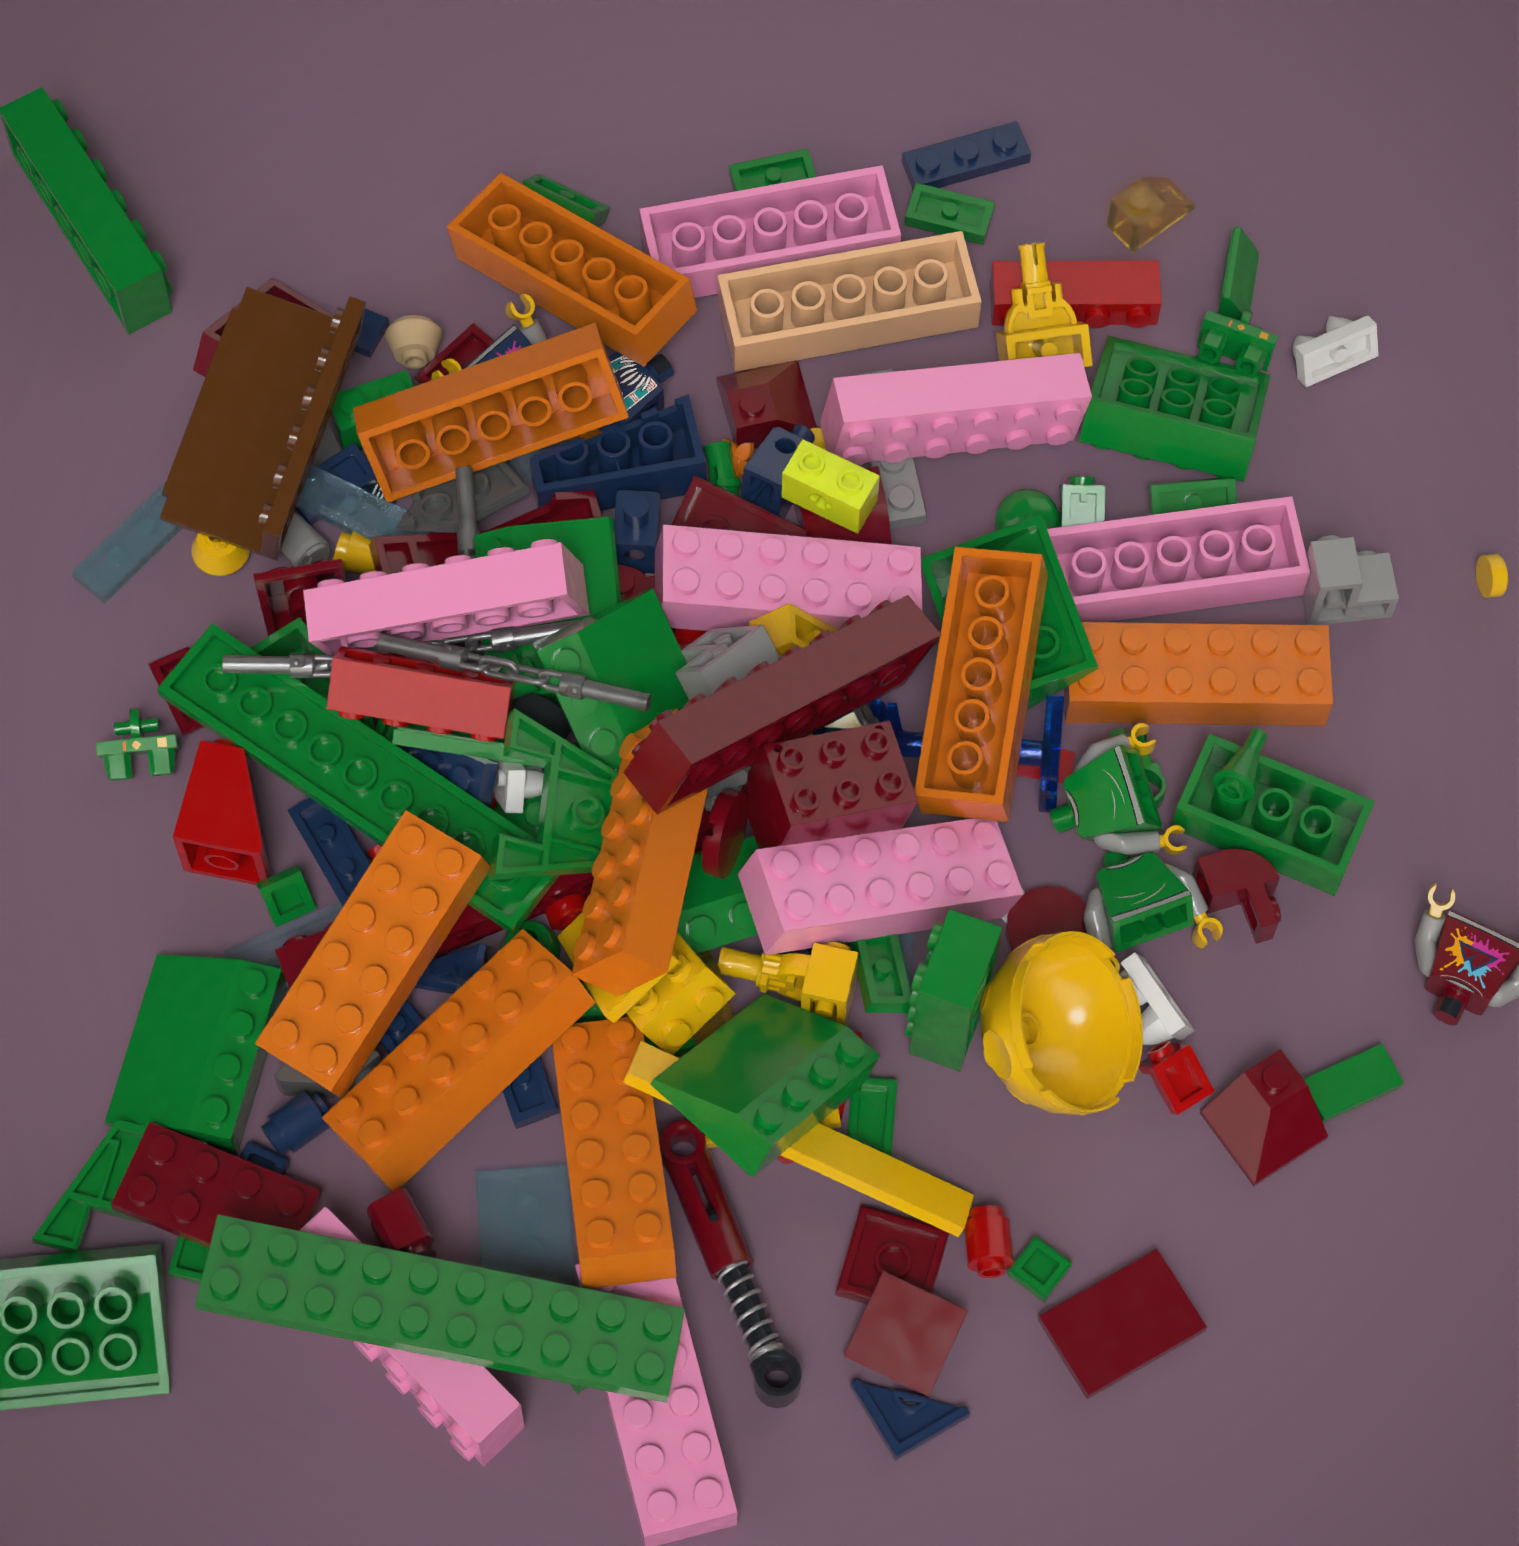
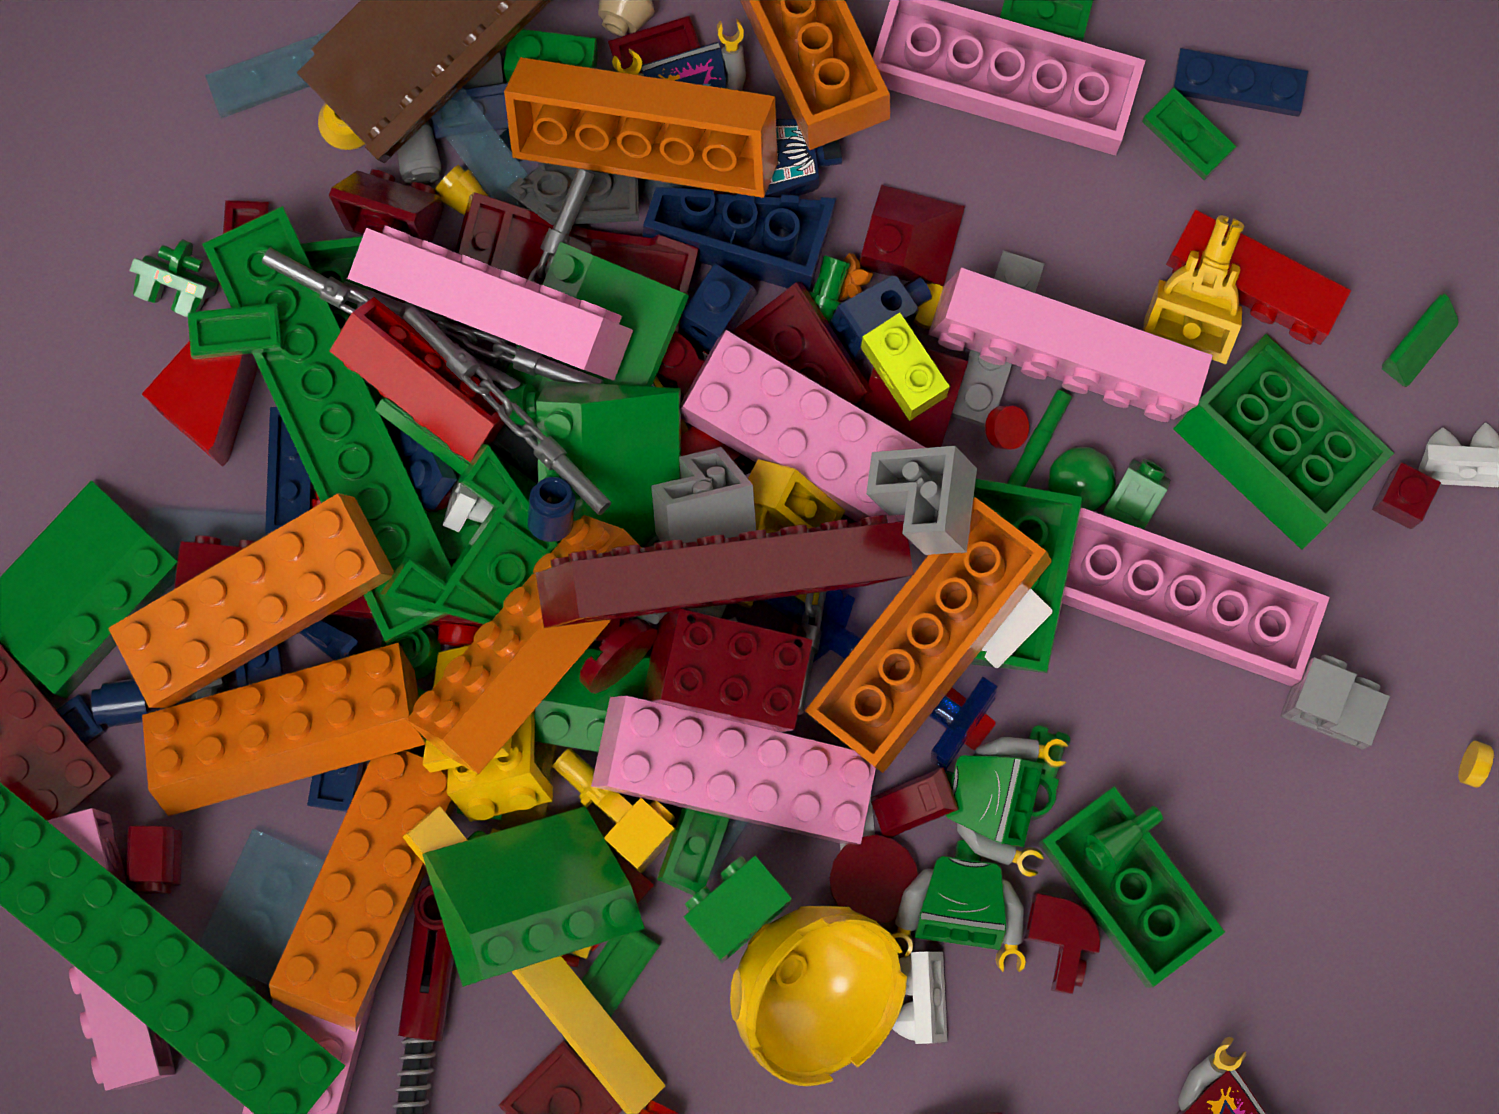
camera: 30 degrees right, 15 degrees up
(229, 741) = (235, 331): none -> green tile
(286, 896) = (226, 487): green plate -> none
(600, 732) = (551, 509): none -> dark blue brick
(848, 301) = (1040, 177): light nougat brick -> none
(913, 554) = (931, 490): none -> light grey brick
(940, 509) = (1007, 427): none -> red tile
(972, 500) = (1040, 439): none -> green piece
(1048, 843) = (914, 803): none -> dark red tile
(1051, 645) = (1016, 628): none -> white sticker
(1146, 210) = (1377, 227): clear yellow slope -> none
(1177, 1075) = (903, 1077): red bracket -> none
(1191, 494) = (1243, 542): green plate -> none
(1204, 675) = (1152, 718): orange brick -> none
(1236, 340) = (1381, 403): green hips -> none
(1302, 397) = (1406, 496): none -> dark red brick

